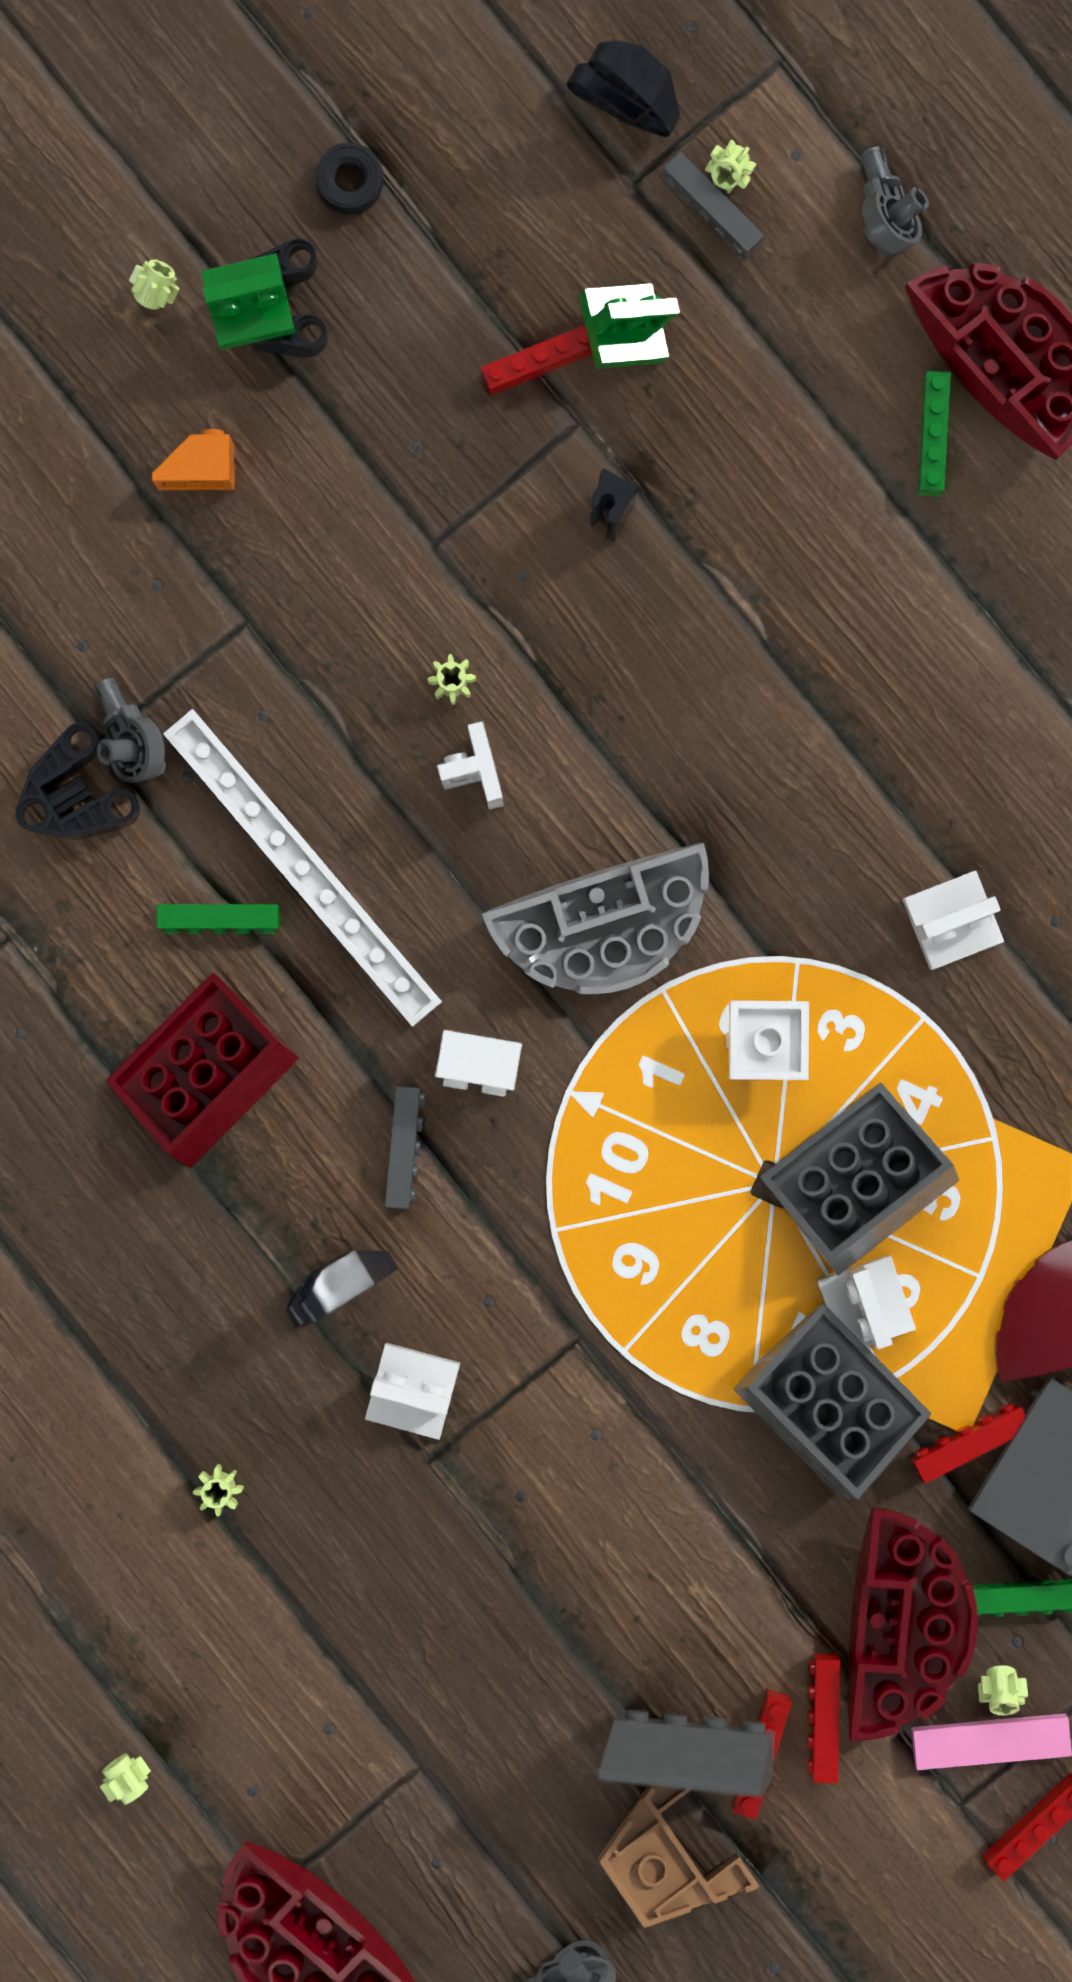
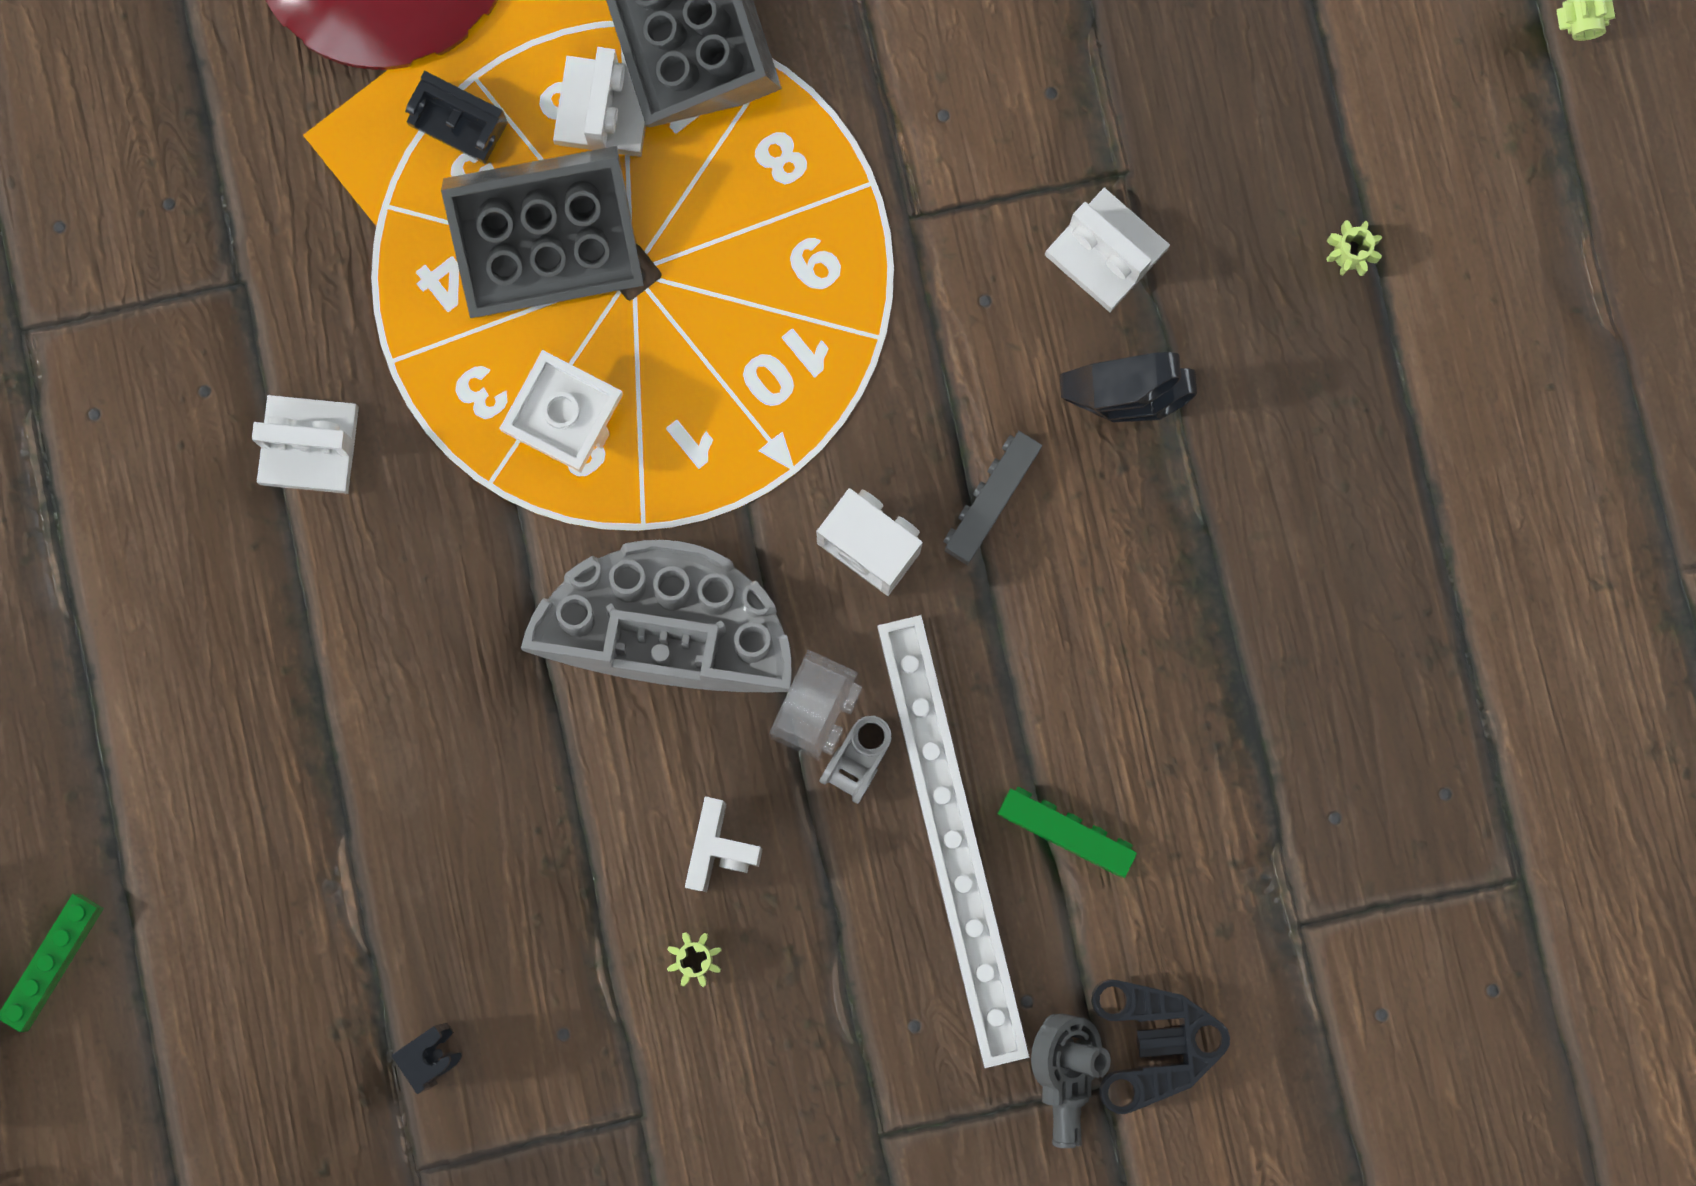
camera: 155 degrees left, 5 degrees down
(201, 1071) = (1163, 681): dark red slope -> none
(405, 891) = (857, 760): none -> light grey piece
(456, 912) = (815, 705): none -> clear brick
(976, 1234) = (455, 117): none -> black hinge

